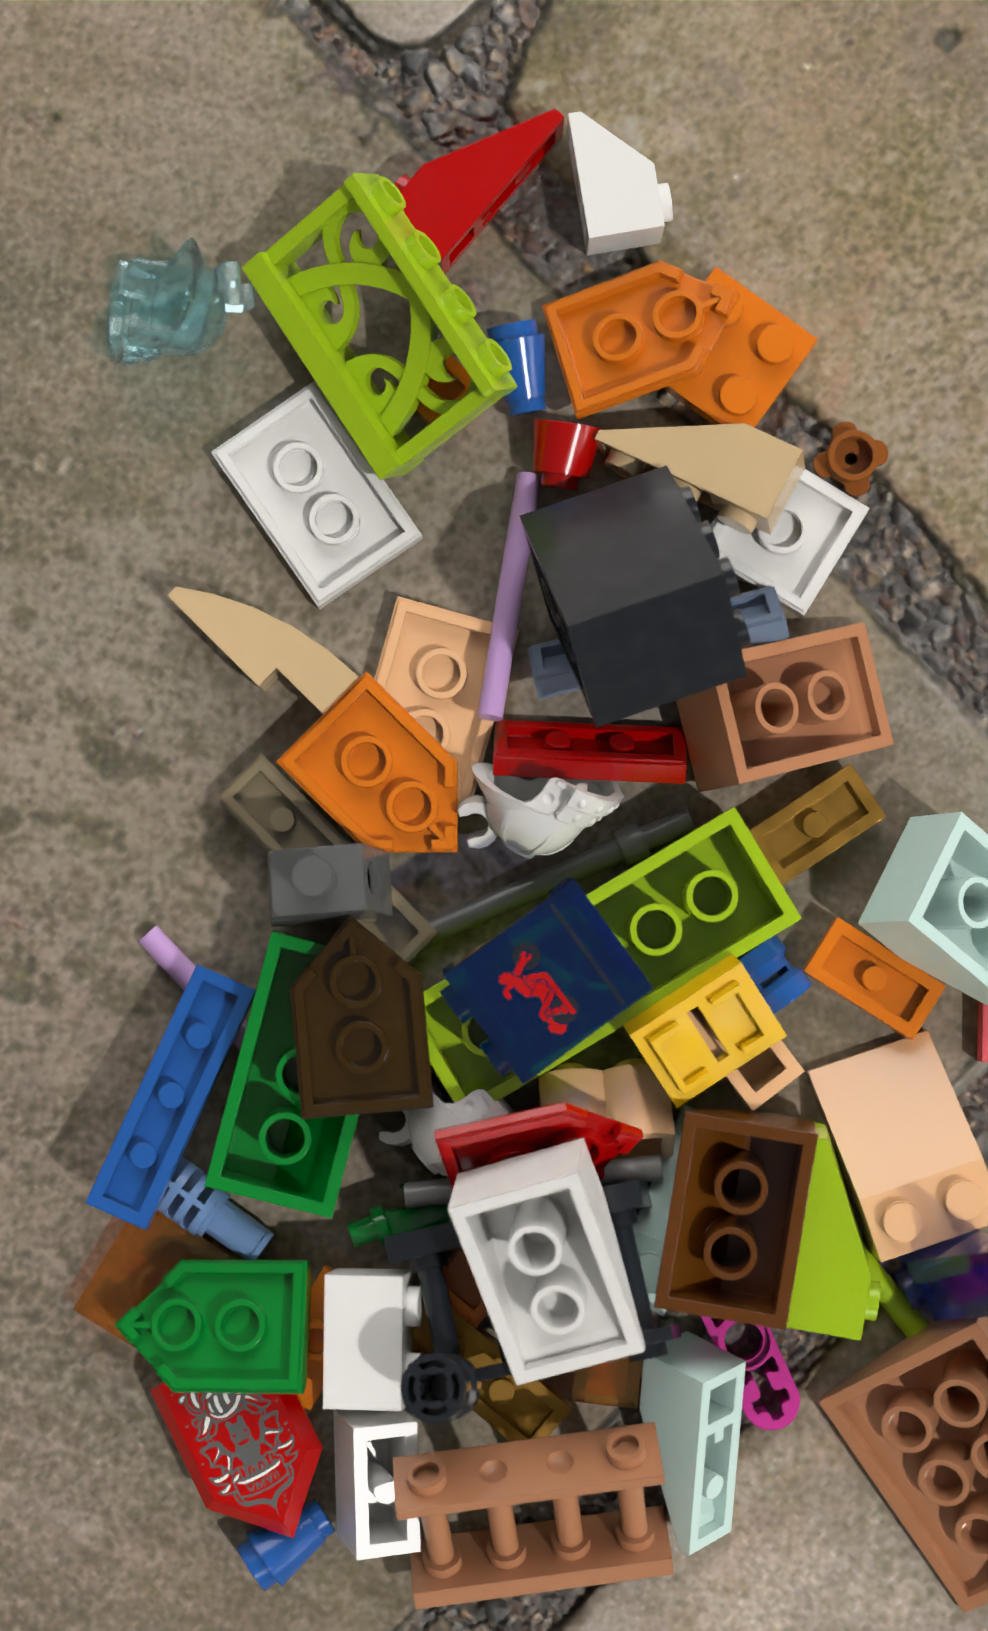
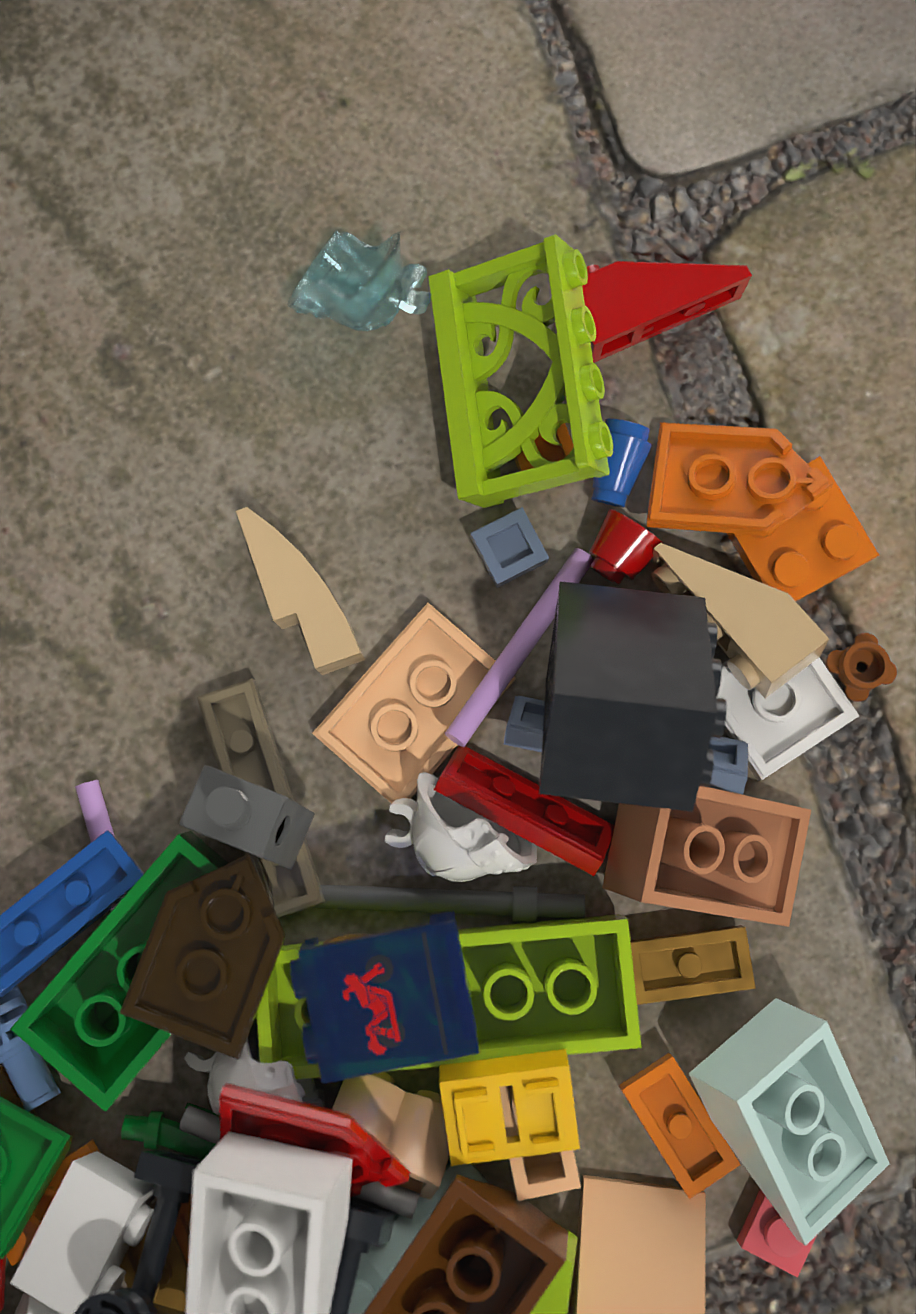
camera: 30 degrees right, 5 degrees down
(316, 495) = (401, 491): white tile -> none
(379, 773) = (339, 743): orange tile -> none
(452, 503) = (509, 547): none -> sand blue plate
(614, 189) = (765, 356): white slope -> none
(765, 961) = (593, 1084): blue wheel -> none

